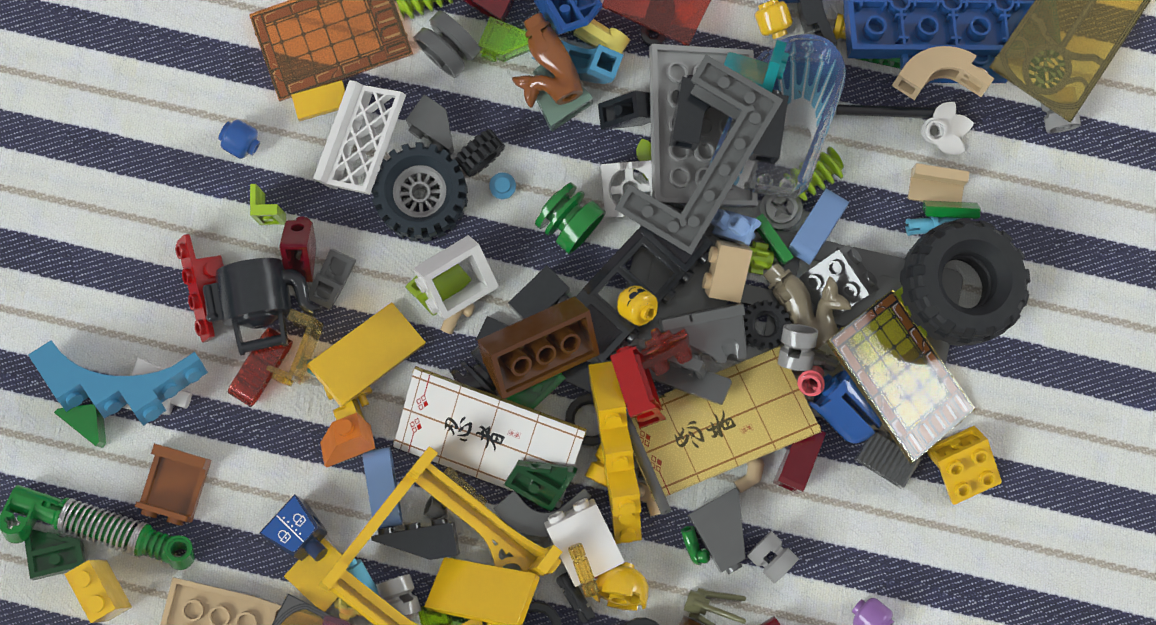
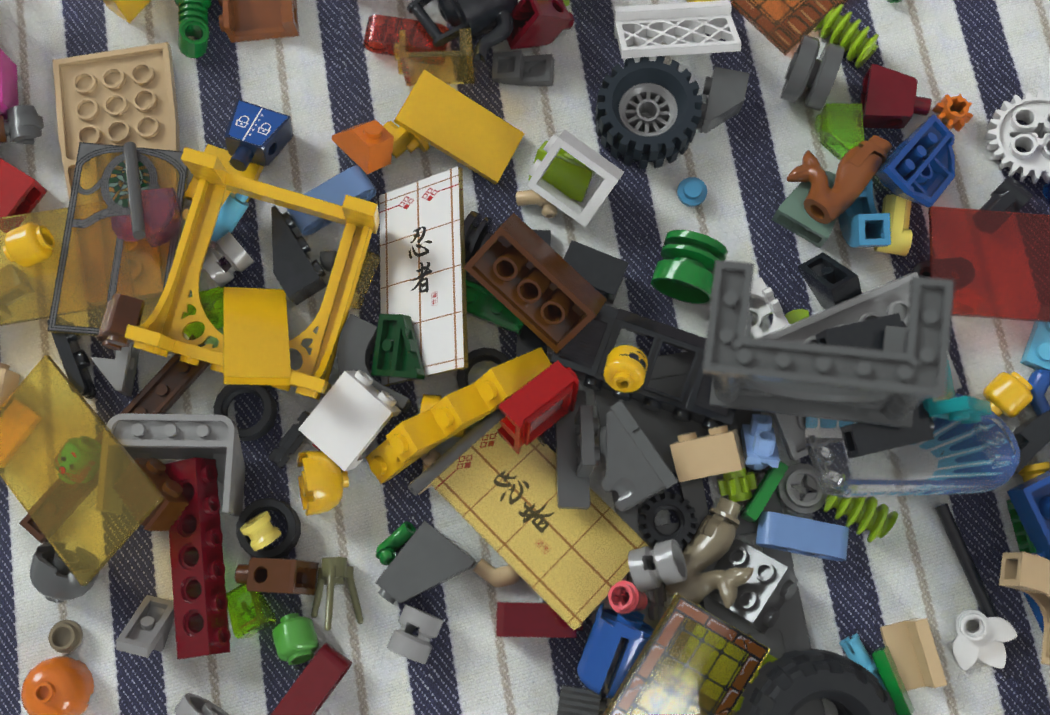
camera: 65 degrees right, 5 degrees down
(479, 152) = (715, 151): black tyre -> none
(583, 570) = (317, 429): clear yellow axle -> none
(663, 347) = (593, 412): clear red hips -> none

